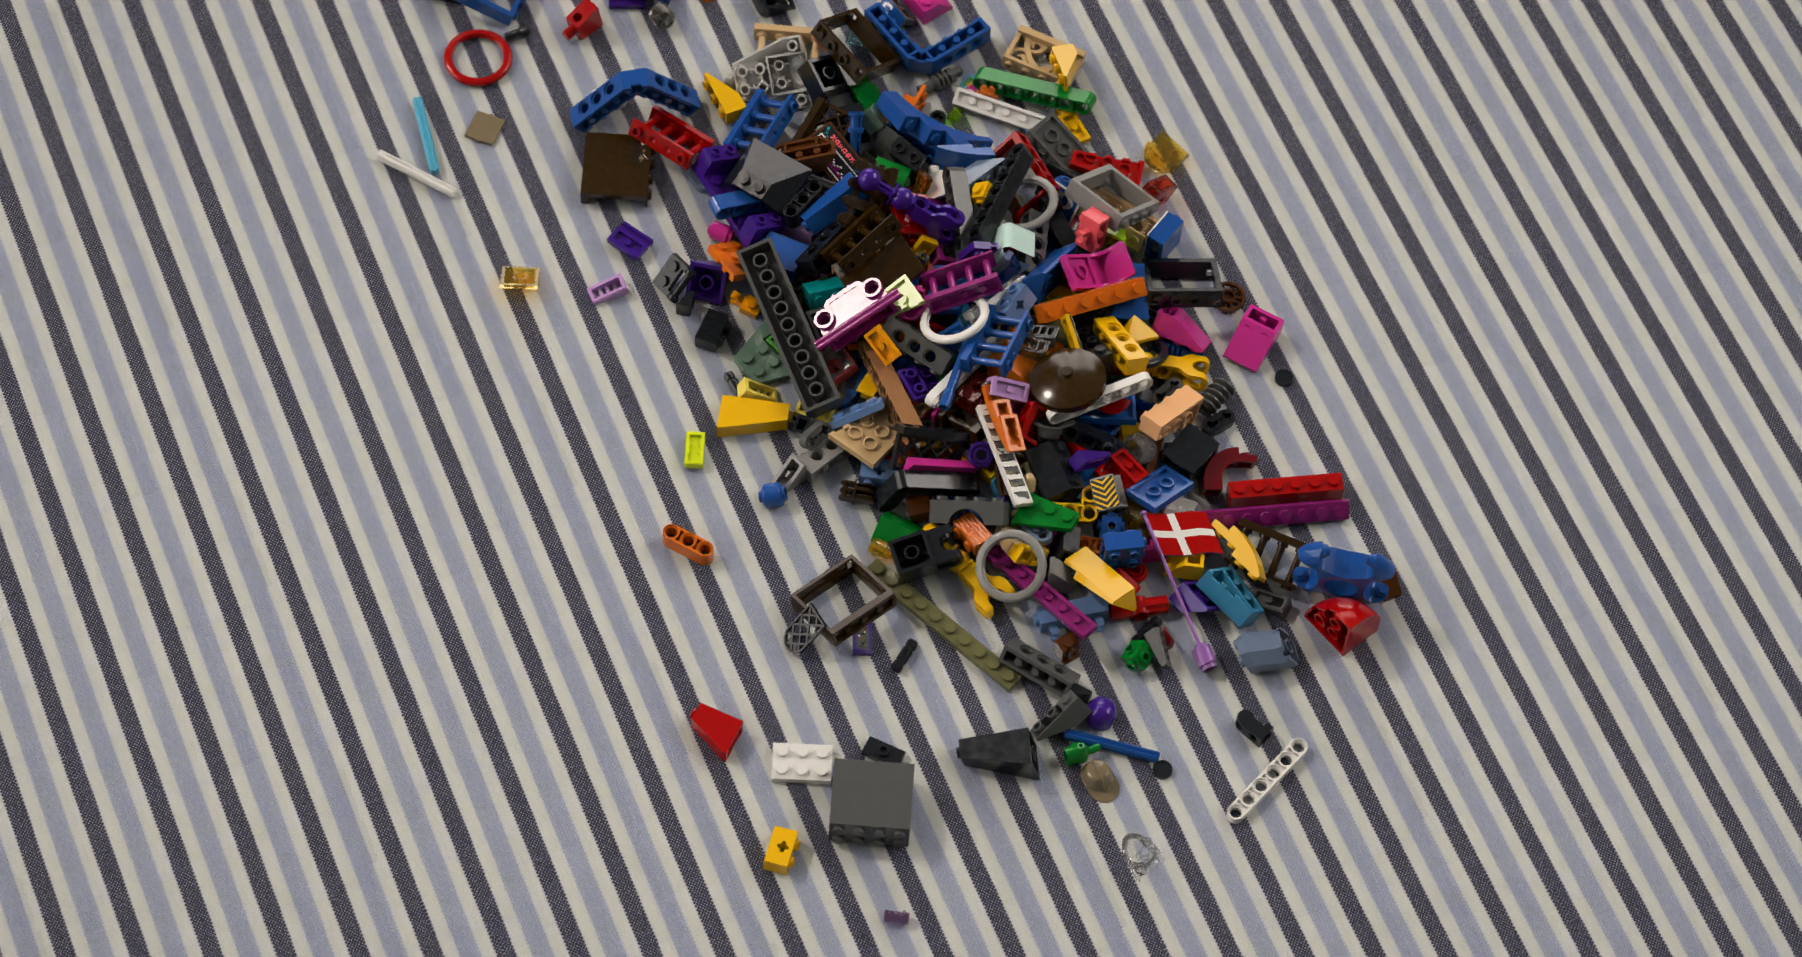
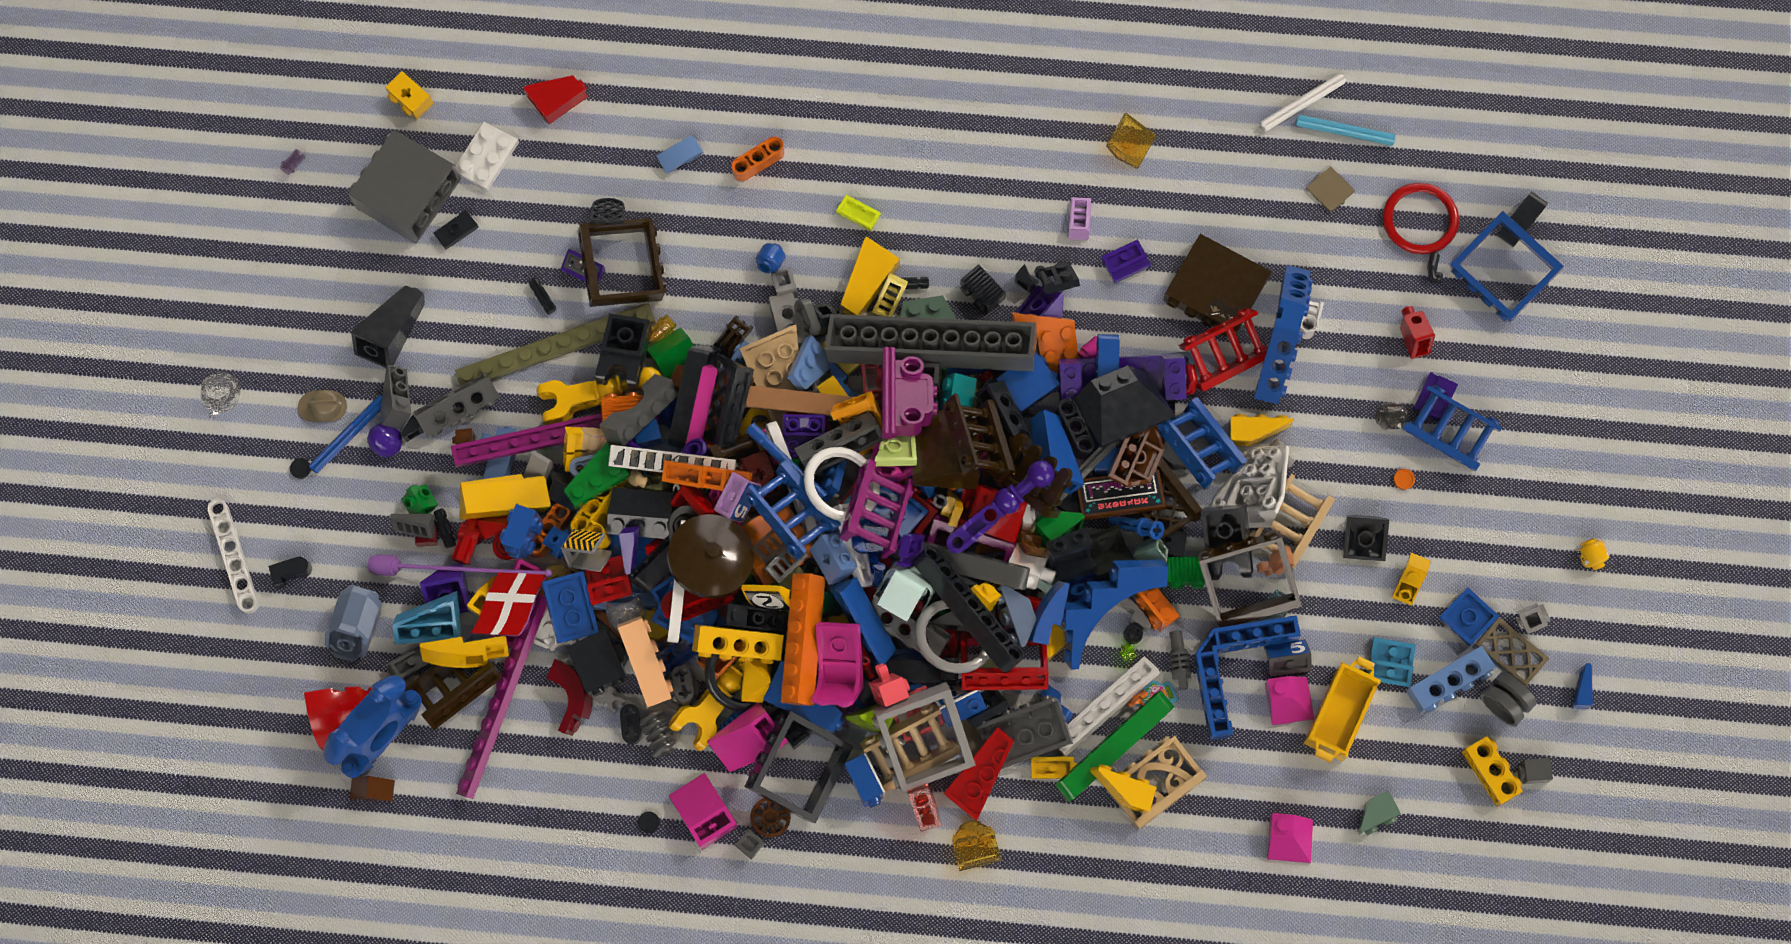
camera: 125 degrees right, 15 degrees up
(718, 606) = (680, 153): none -> medium blue slope
(1041, 569) = (568, 438): light grey wedge -> none
(1078, 753) = (354, 397): green piece -> none
(1258, 296) = (750, 844): none -> dark grey tile
(1284, 490) = (516, 743): red brick -> none

